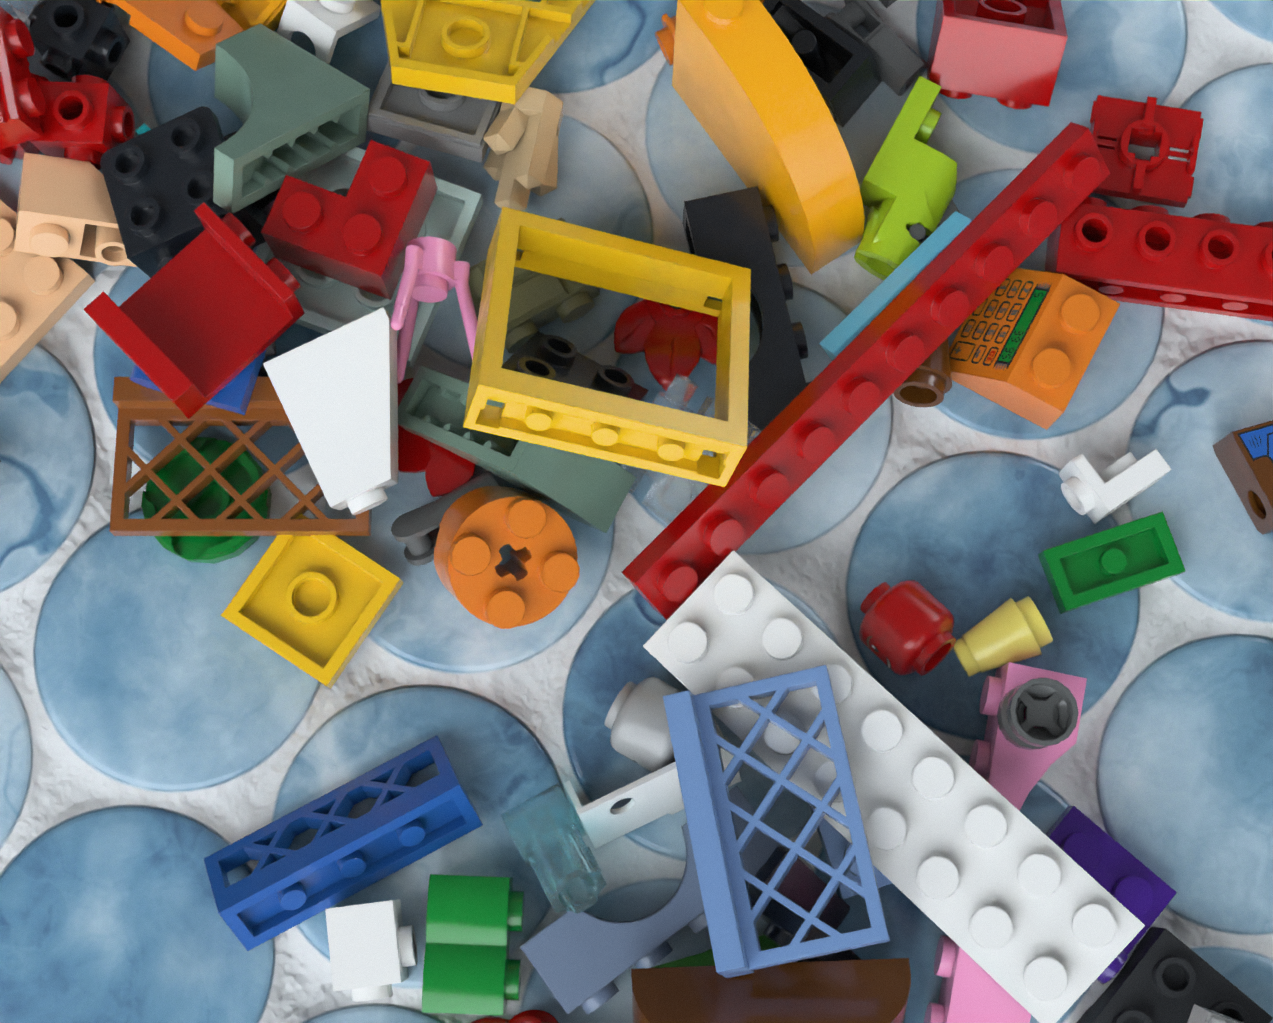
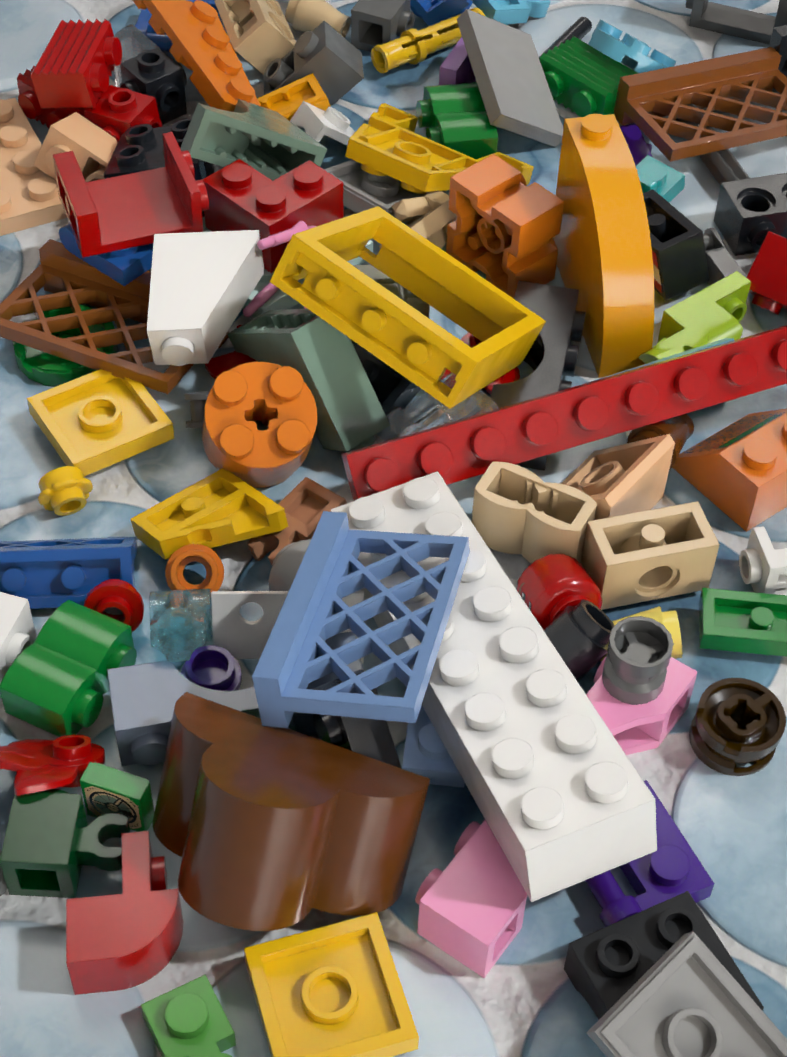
camera: 25 degrees right, 30 degrees down
(332, 717) = (64, 490): none -> yellow plate
(470, 846) = (119, 595): none -> red plate
(504, 688) = (209, 513): none -> yellow wing
(532, 775) = (190, 553): none -> orange plate
(604, 638) = (303, 511): none -> nougat plate
(620, 874) = (213, 669): none -> dark purple plate
(631, 116) = (503, 225): none -> orange brick
(862, 547) = (530, 517): none -> tan brick
(895, 462) = (625, 476): none -> light nougat slope
(951, 689) = (580, 636): none -> black brick
(980, 540) = (650, 554): none -> tan brick
(1134, 702) = (735, 725): none -> dark brown wheel

